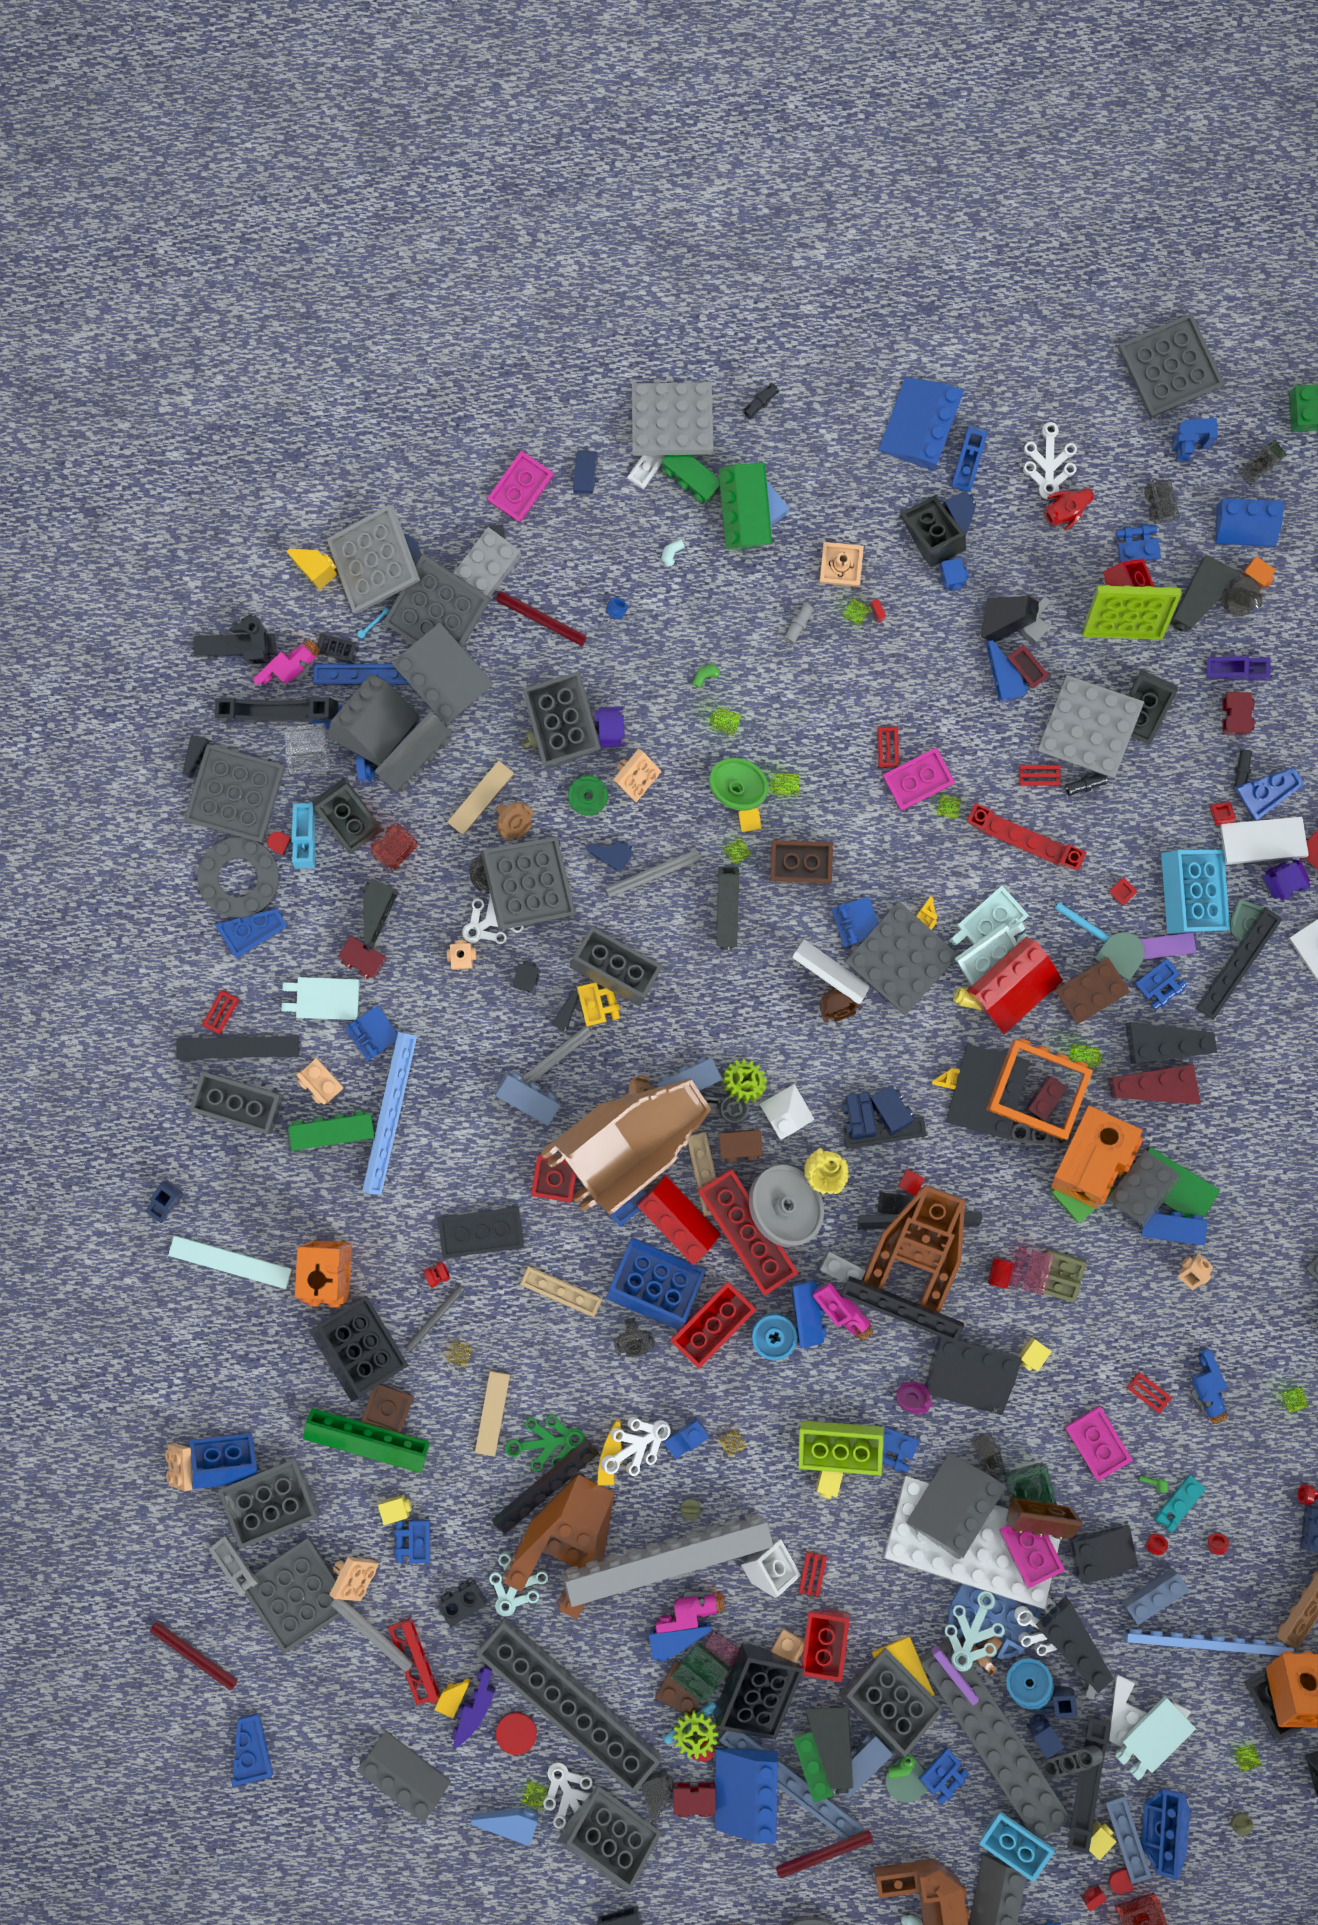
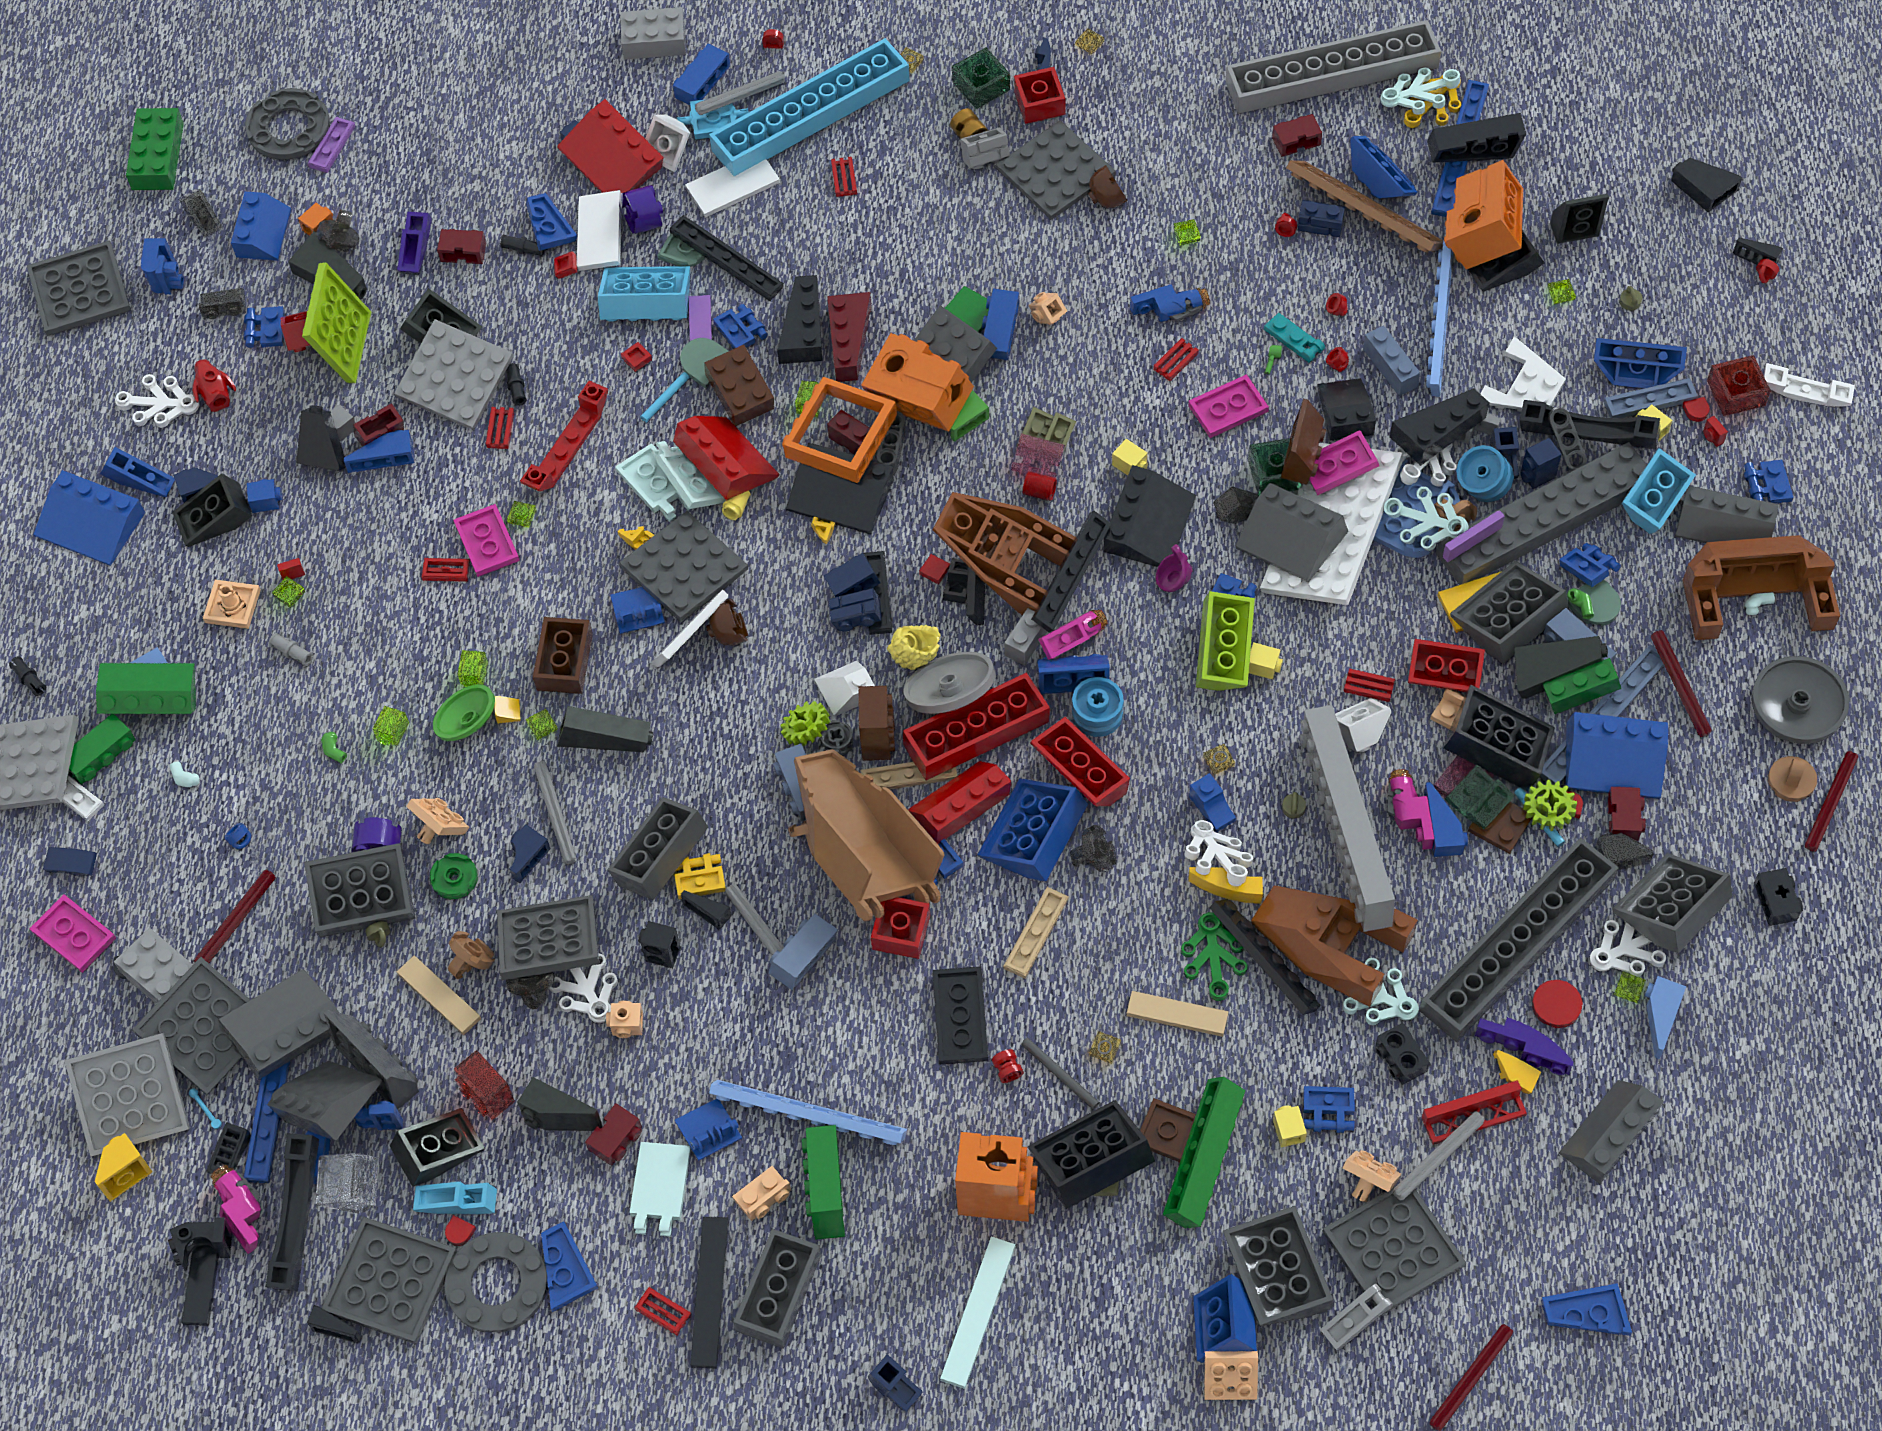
camera: 85 degrees left, 25 degrees down
(1155, 1738) = (1540, 366): light aqua tile -> none

